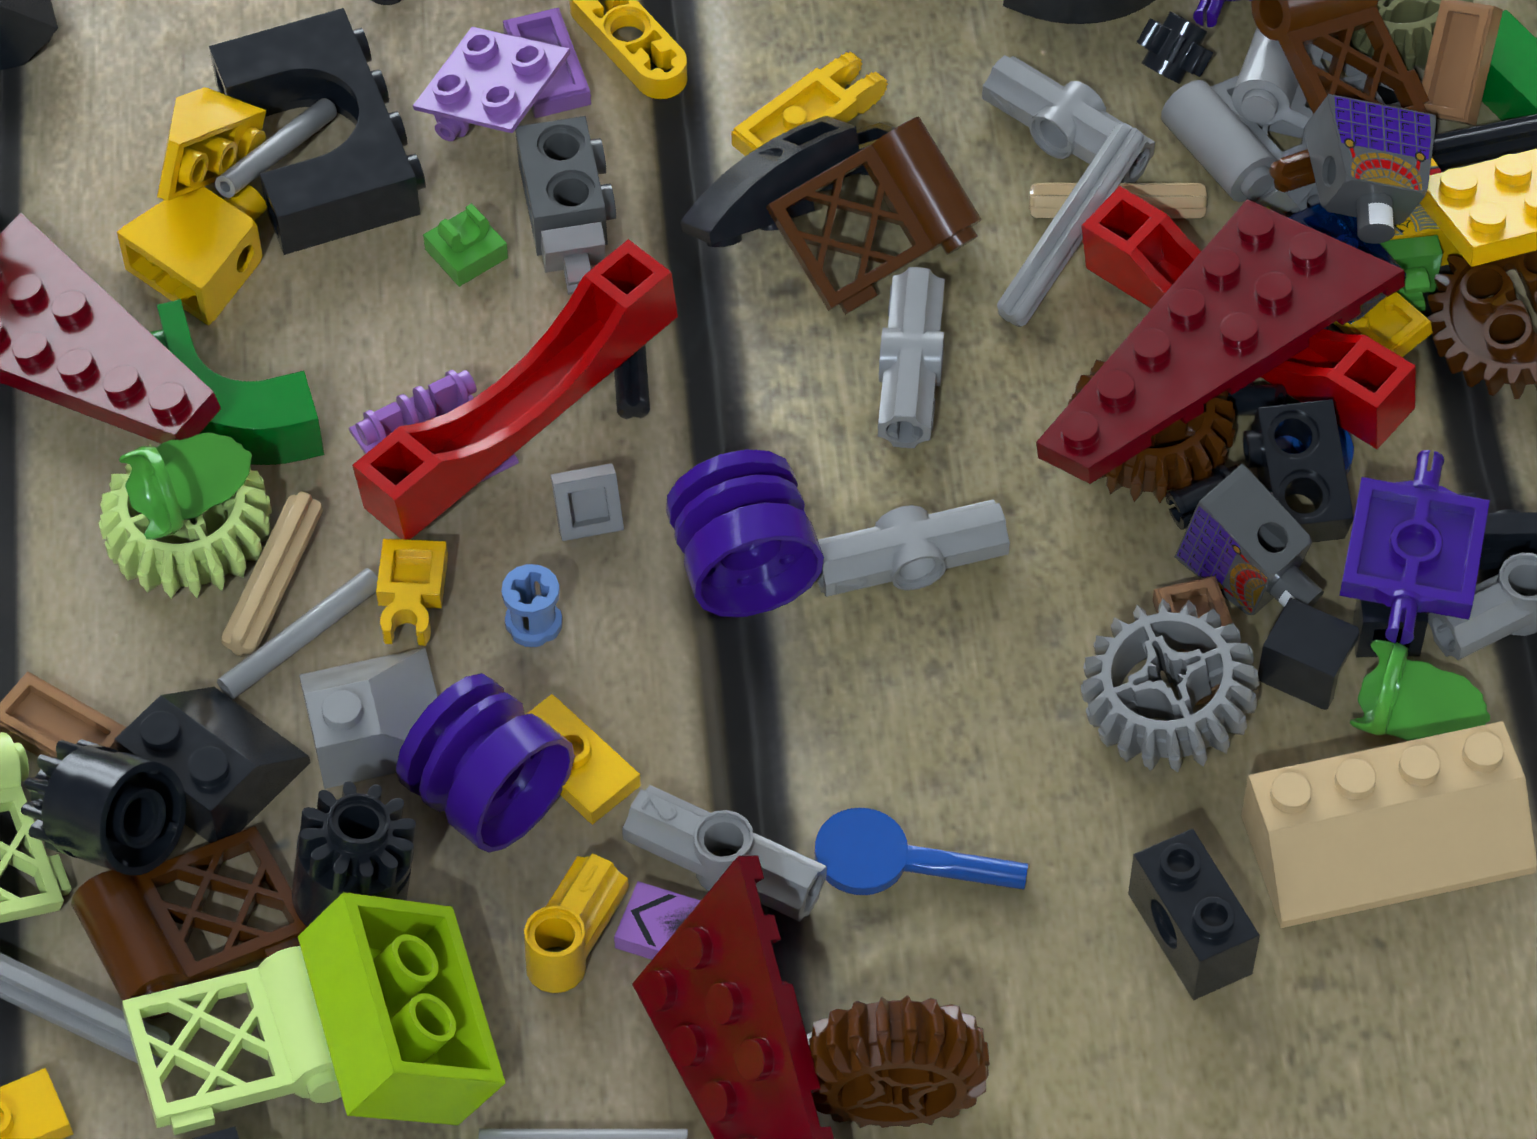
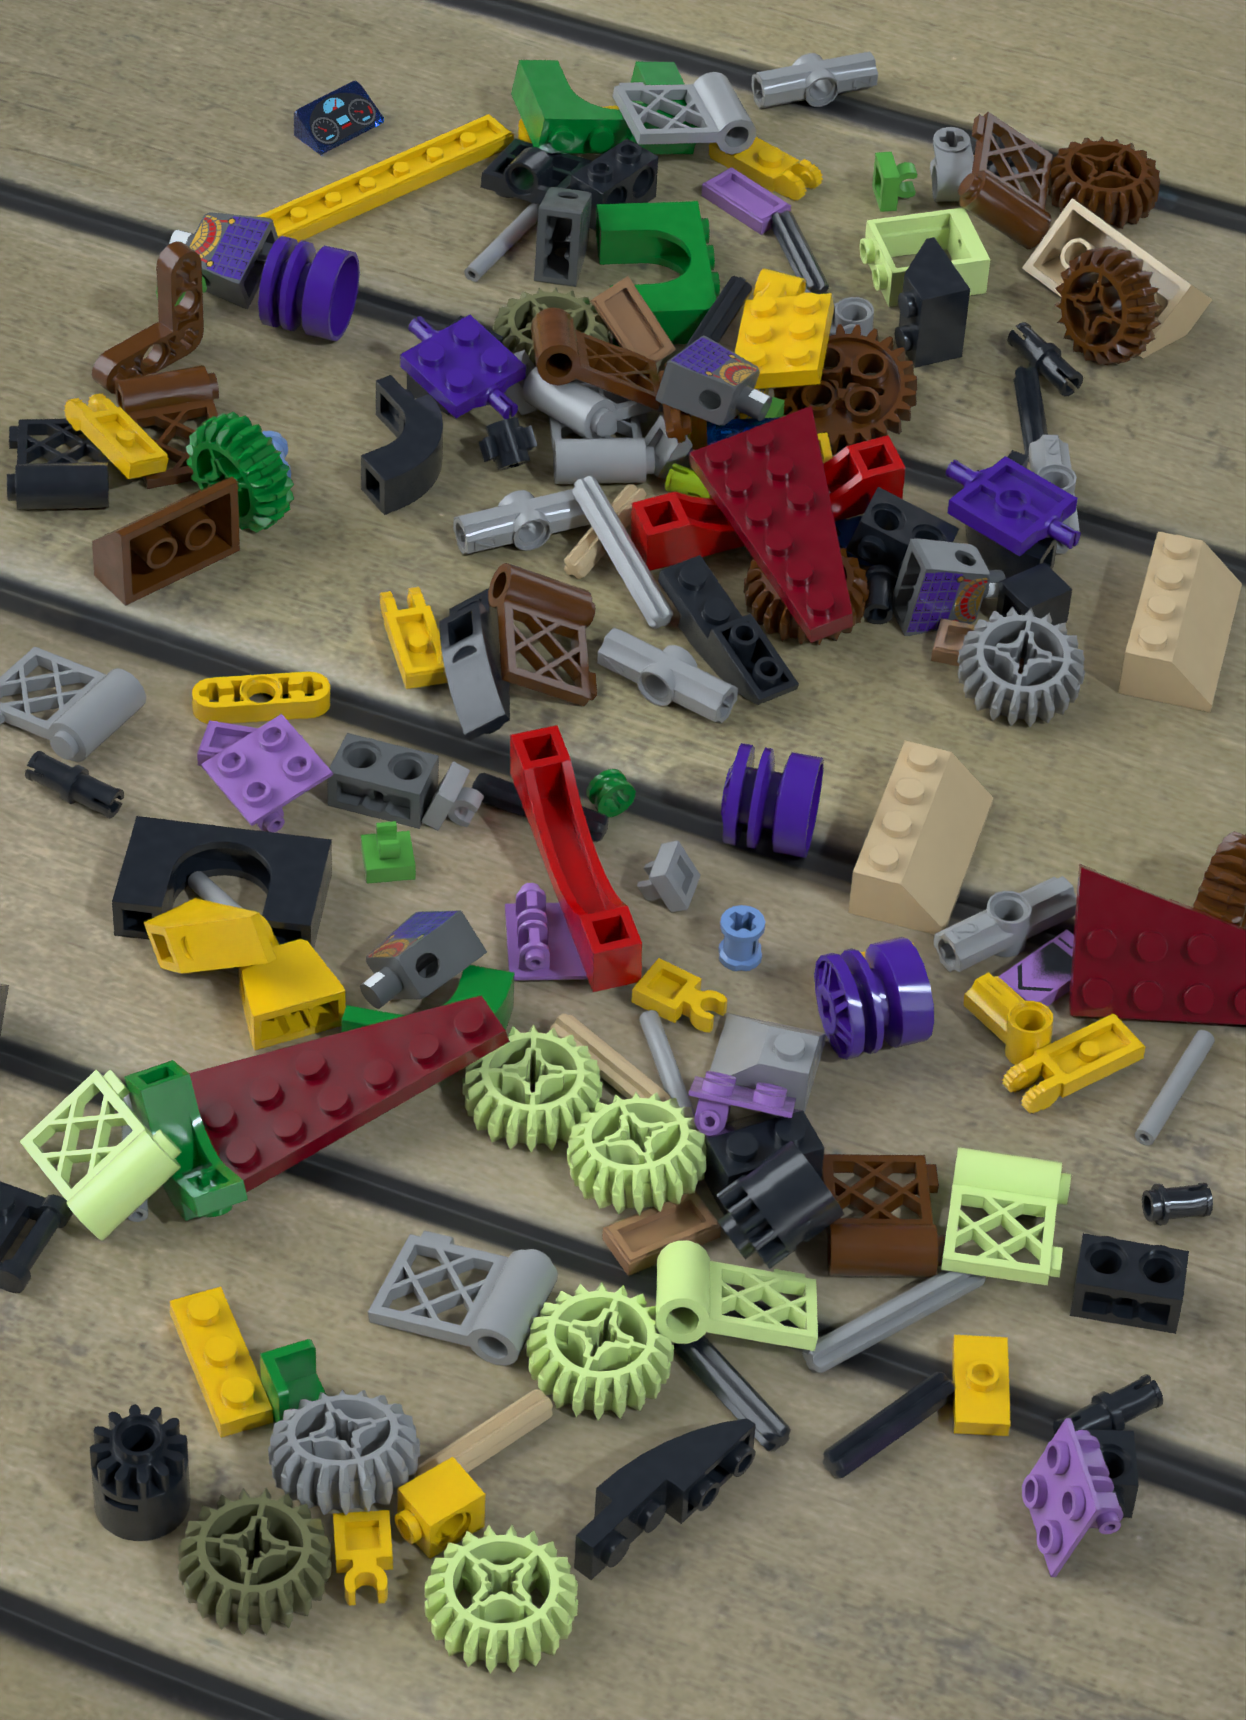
camera: 65 degrees left, 10 degrees down
(135, 635) = (637, 1153): none -> yellowish green gear
(184, 479) = (534, 1053): bright green piece -> none
(244, 701) = (719, 1092): none -> medium lavender hinge
(294, 329) = (421, 956): none -> dark grey torso
(351, 848) = (910, 1096): black gear -> none
(400, 1010) = (1046, 1115): lime brick -> none
(558, 1020) = (1074, 1062): none -> yellow hinge
(684, 389) = (610, 792): none -> green bush
(808, 709) = (920, 841): none -> tan slope
(870, 853) = (1041, 859): blue piece -> none
(912, 547) = (828, 729): light grey piece -> none
(1017, 380) = (722, 637): none -> black slope
(1193, 914) = (1193, 732): black brick -> none
(1416, 697) = (1097, 572): bright green piece -> none

